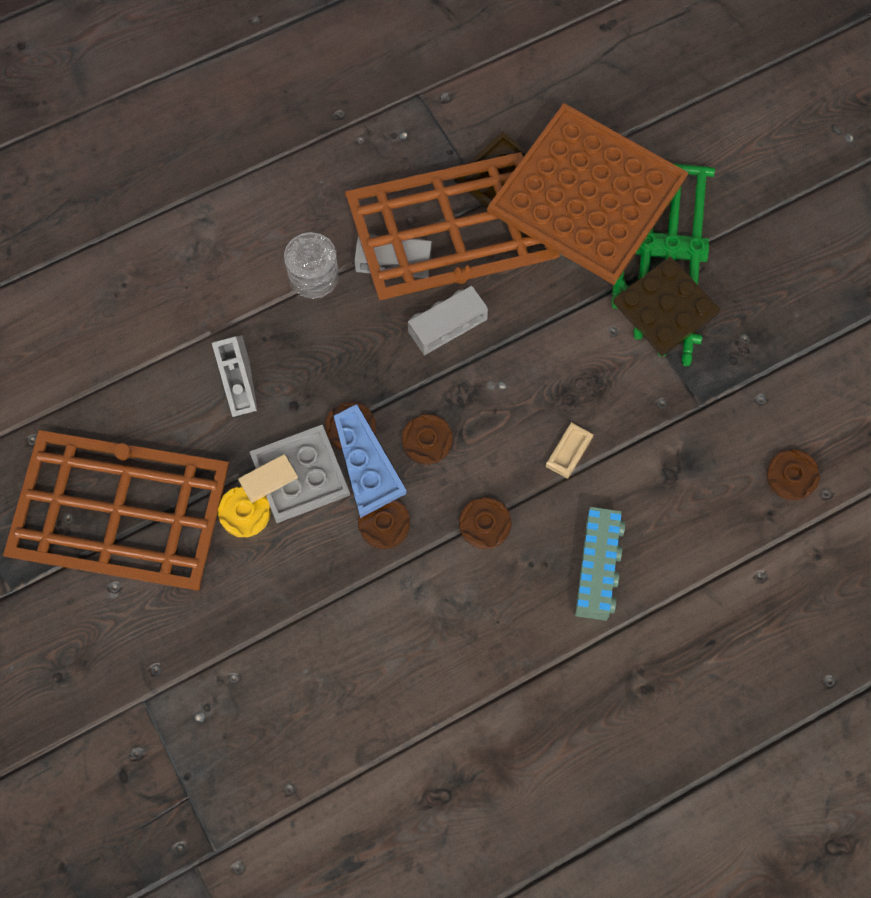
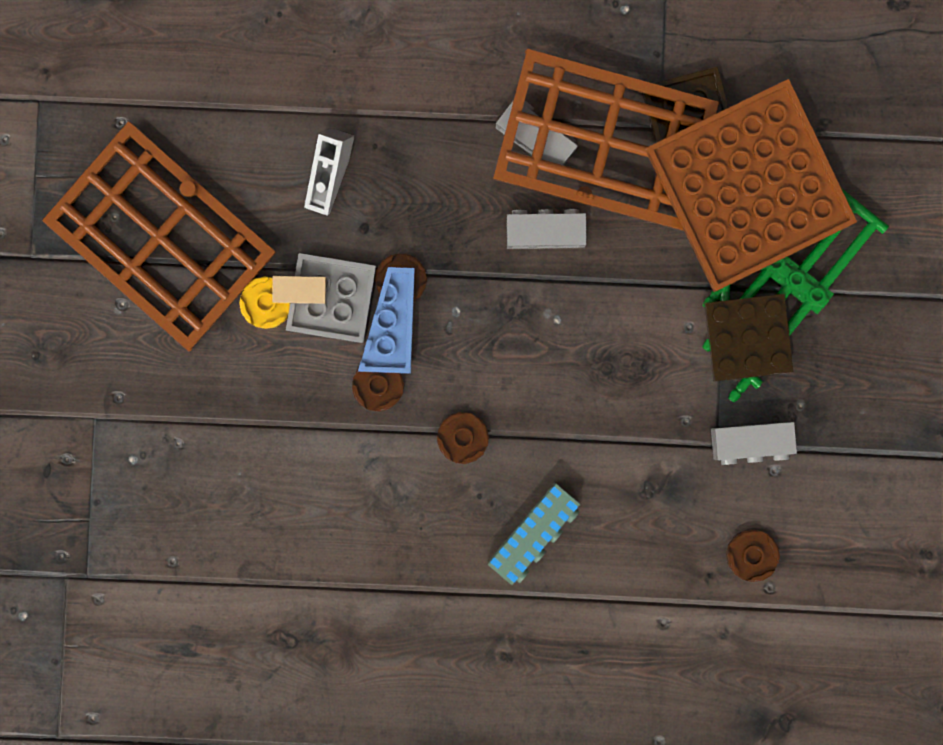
camera: 30 degrees right, 20 degrees up
(315, 276) = (466, 113): clear wheel -> none
(427, 439) = (460, 331): reddish brown tile -> none
(569, 450) = (576, 417): tan tile -> none
(728, 383) = (753, 442): none -> light grey brick

